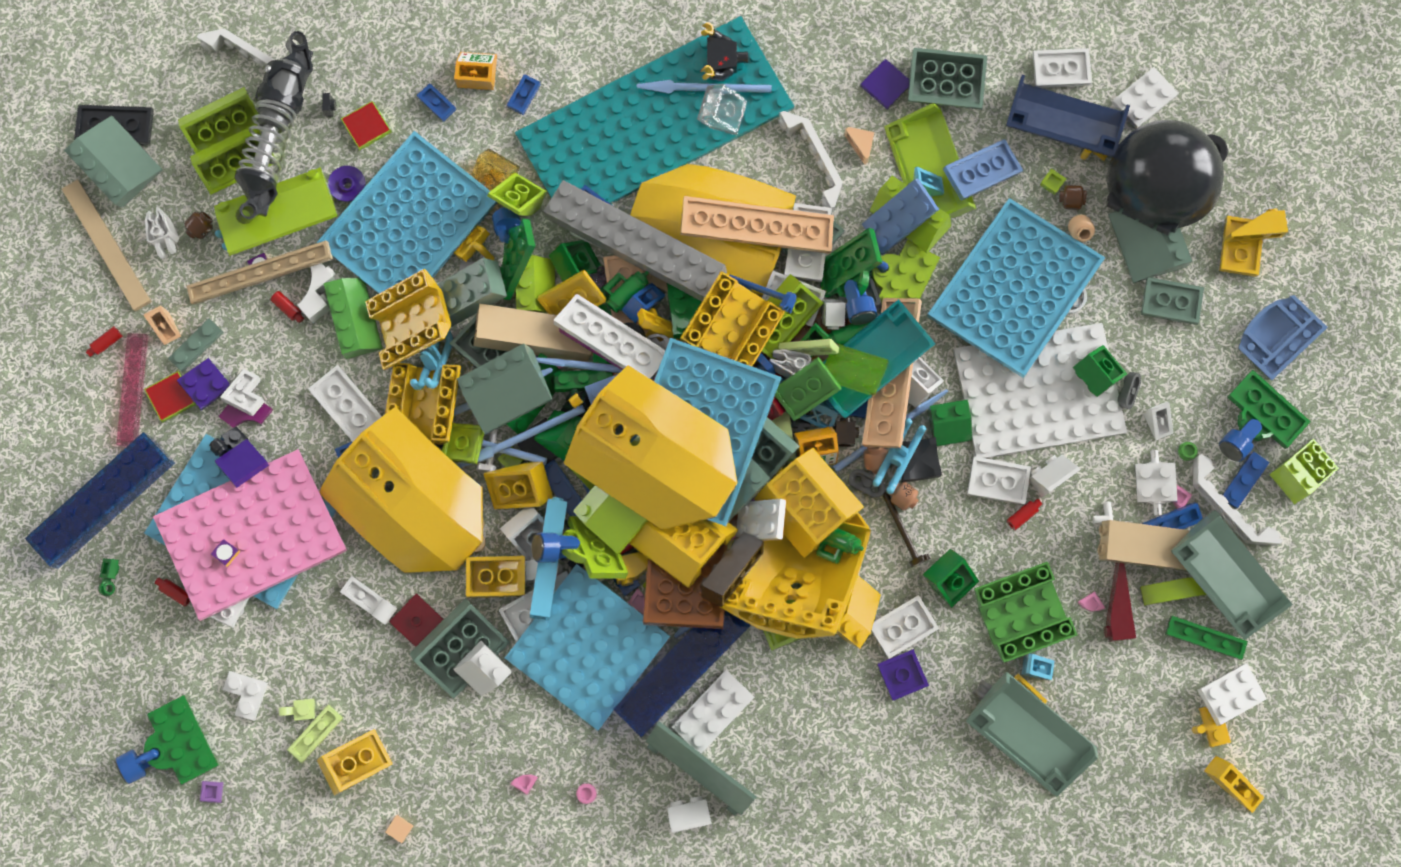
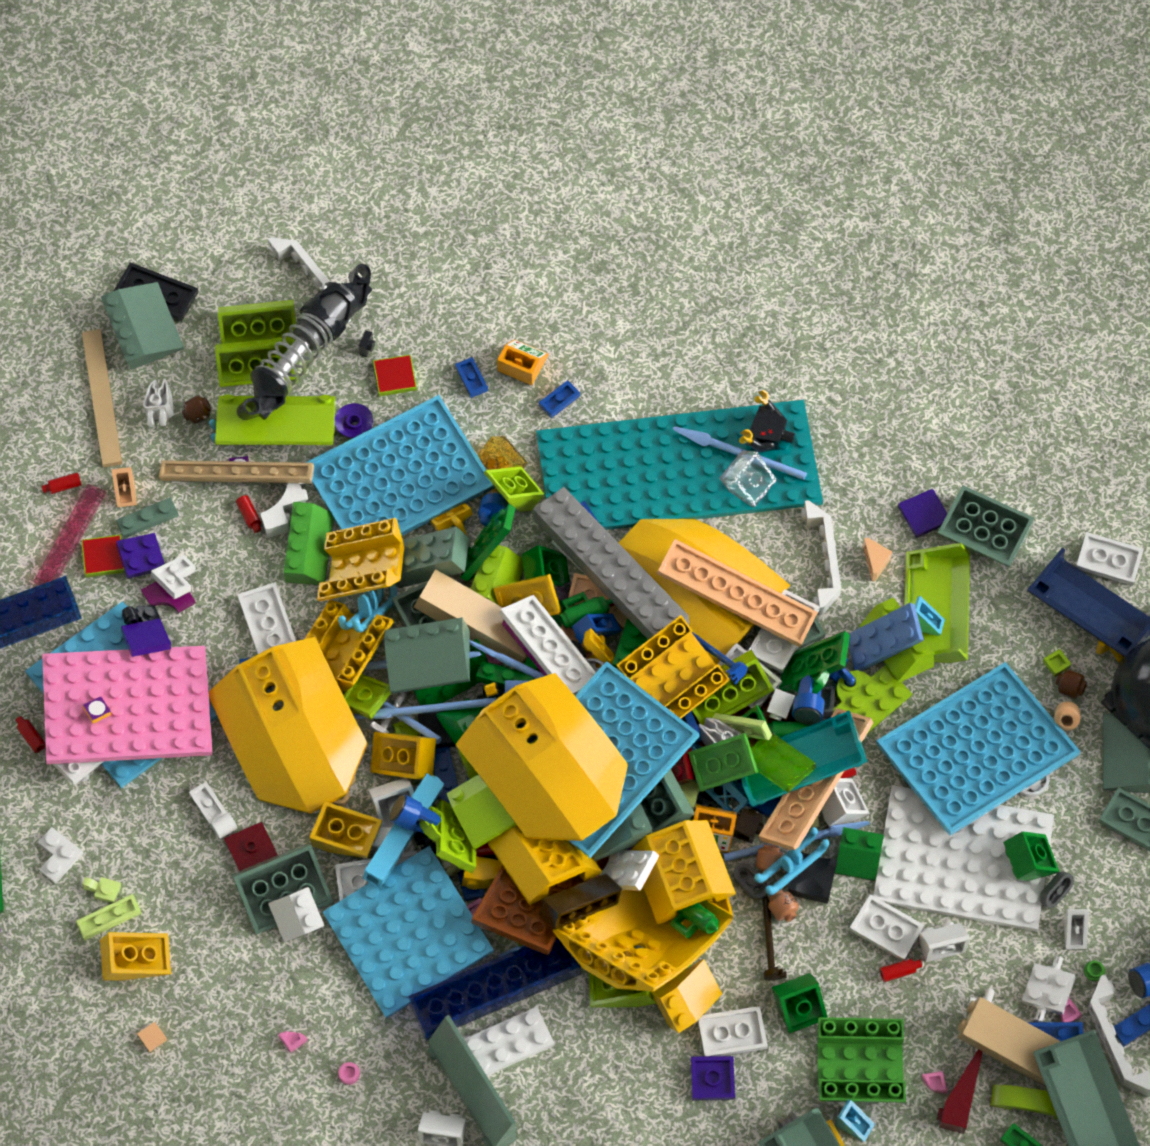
camera: 20 degrees right, 15 degrees down
(982, 169) = (988, 625): medium blue plate -> none

